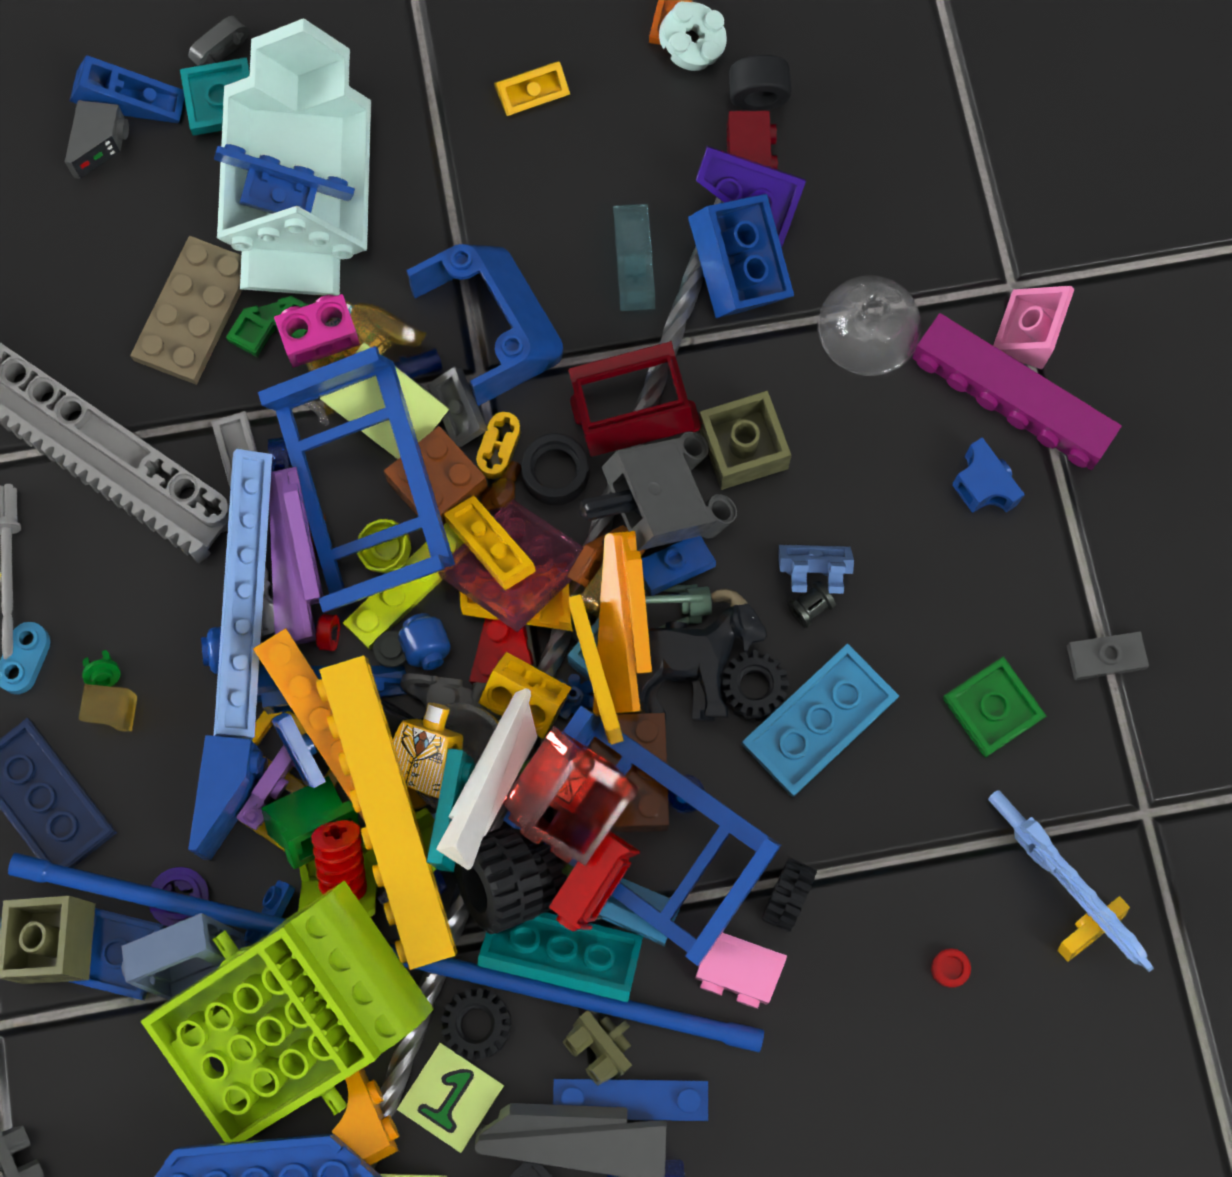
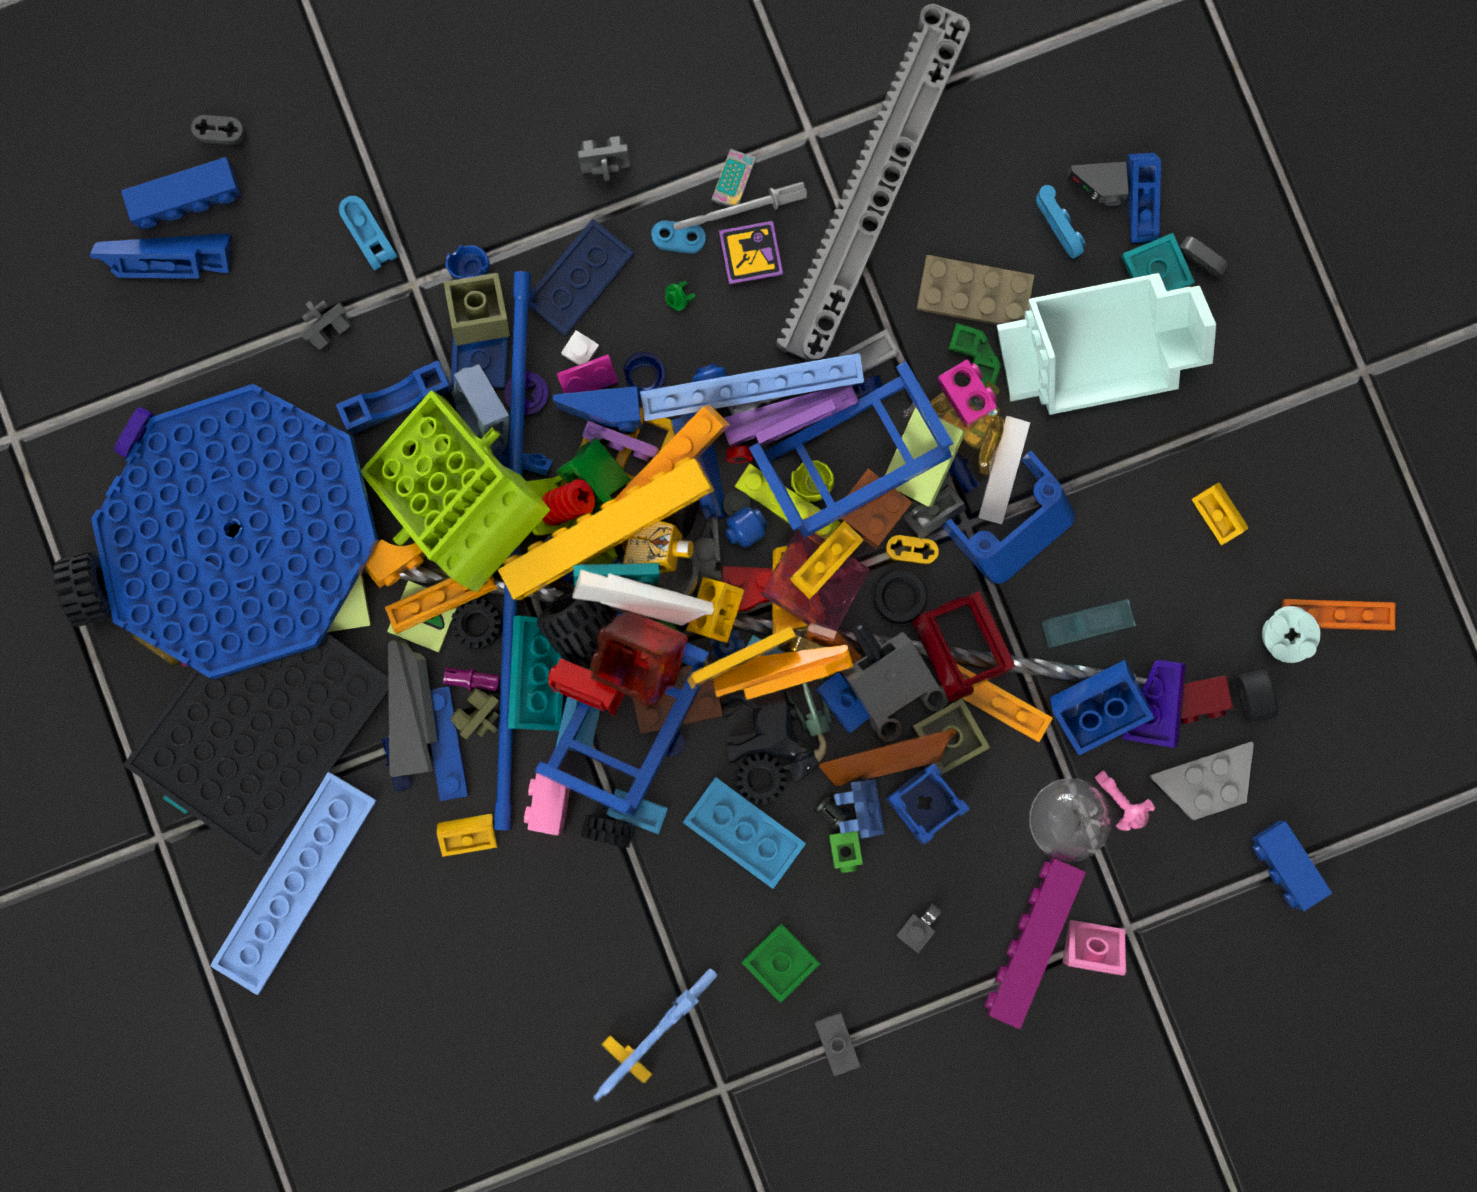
camera: 80 degrees right, 10 degrees up
(68, 567) = (750, 252): none -> piece
(108, 706) = (651, 308): clear yellow panel -> none
(131, 193) = (1060, 222): none -> dark azure plate
(138, 814) = (580, 349): none -> white plate
(147, 1115) = (376, 407): none -> blue arch
(175, 726) = (642, 359): none -> clear blue piece
(175, 808) = (588, 376): none -> dark pink plate
(278, 187) = (1079, 337): blue bracket -> none
(299, 749) = (642, 455): plate -> none
(434, 1078) = (432, 602): none -> light orange tile
(438, 326) = (1004, 470): none -> white sticker
(503, 490) = (874, 560): reddish brown rock -> none
(550, 1045) = (471, 679): none -> magenta axle
(723, 366) = (1007, 708): none -> light orange plate
(758, 515) = (888, 758): none -> dark orange wedge
(760, 1093) = (466, 835): none -> yellow slope
(784, 834) = (649, 815): none -> dark azure tile
(830, 463) = (943, 804): none -> blue container
(851, 161) = (1209, 782): none -> light grey wing
(872, 585) = (848, 839): none -> bright green brick
(878, 246) = (1135, 815): none -> bright pink piece
(951, 968) = (580, 959): red tile -> none
(967, 89) = (1290, 866): none -> blue brick
(978, 530) = (917, 930): none -> dark grey plate
(987, 480) = (957, 930): blue brick -> none

